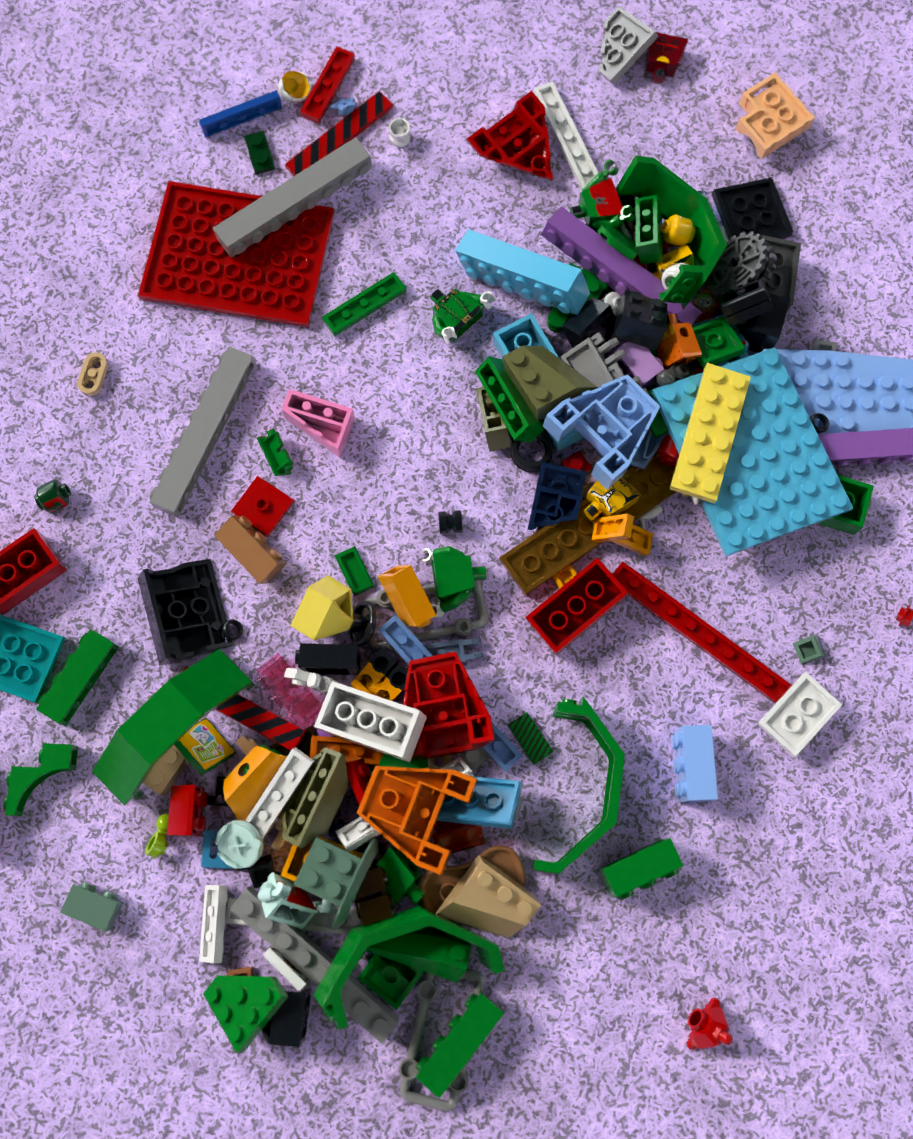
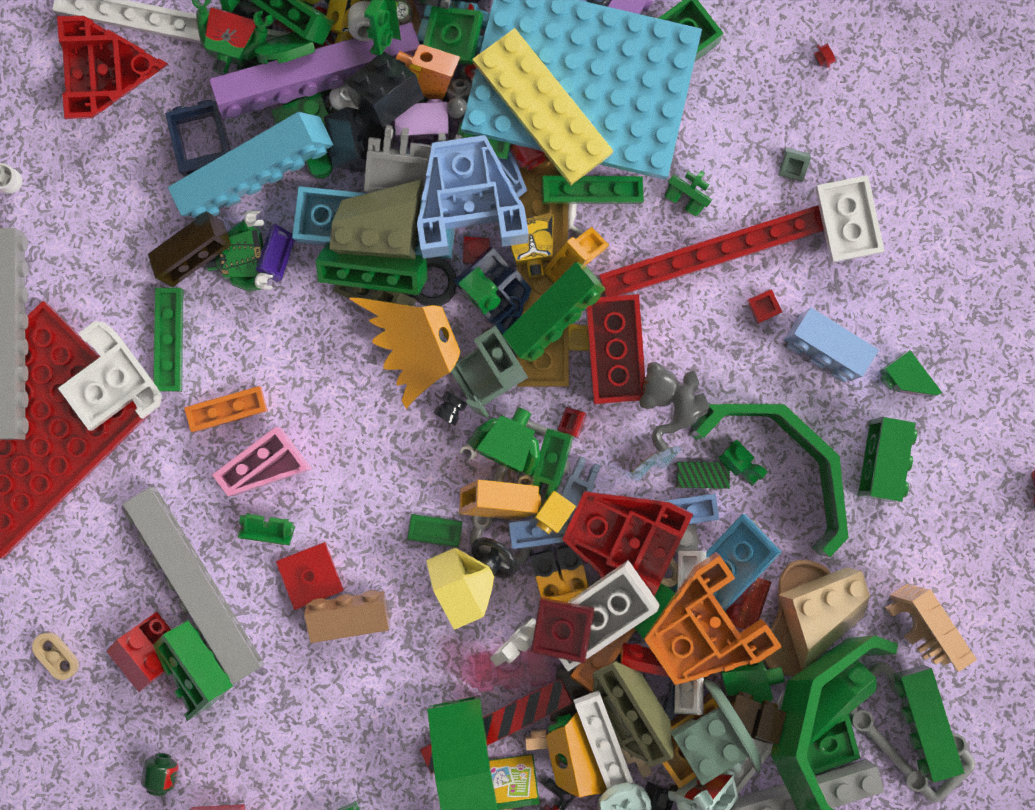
camera: 55 degrees left, 10 degrees up
(135, 431) = (136, 653): none -> red slope
(143, 467) = (193, 669): none -> green wedge
(184, 611) = (364, 717): black piece -> none
(226, 633) = (408, 690): black piece -> none
(308, 282) = (110, 380): none -> white piece
(329, 658) = (508, 613): black window -> none
(341, 700) = (562, 630): none -> dark red tile
(342, 372) = (226, 409): none -> orange plate
(424, 640) = (553, 513): none -> yellow brick
(436, 273) = (189, 249): none -> dark brown brick
(459, 618) = (552, 460): none -> green hinge
(474, 331) = (275, 252): none -> dark purple tile
(478, 463) = (415, 343): none -> light orange piece
(492, 527) = (487, 371): none -> sand green piece
(501, 616) = (572, 422): none -> red slope
(521, 697) = (661, 459): none -> clear light blue slope
(527, 214) = (186, 114): none -> dark blue window
(534, 991) = (932, 626): none -> light nougat piece
(548, 481) = (480, 291): none -> green brick
(560, 757) = (739, 460): none -> green plate
(570, 541) = (554, 312): none -> green brick
(570, 656) = (662, 389): none -> dark grey animal
(679, 514) = (592, 190): none -> green plate
(688, 698) = (764, 306): none -> red plate
(715, 844) = (908, 376): none -> green slope
(728, 575) = (699, 199): none -> green hips

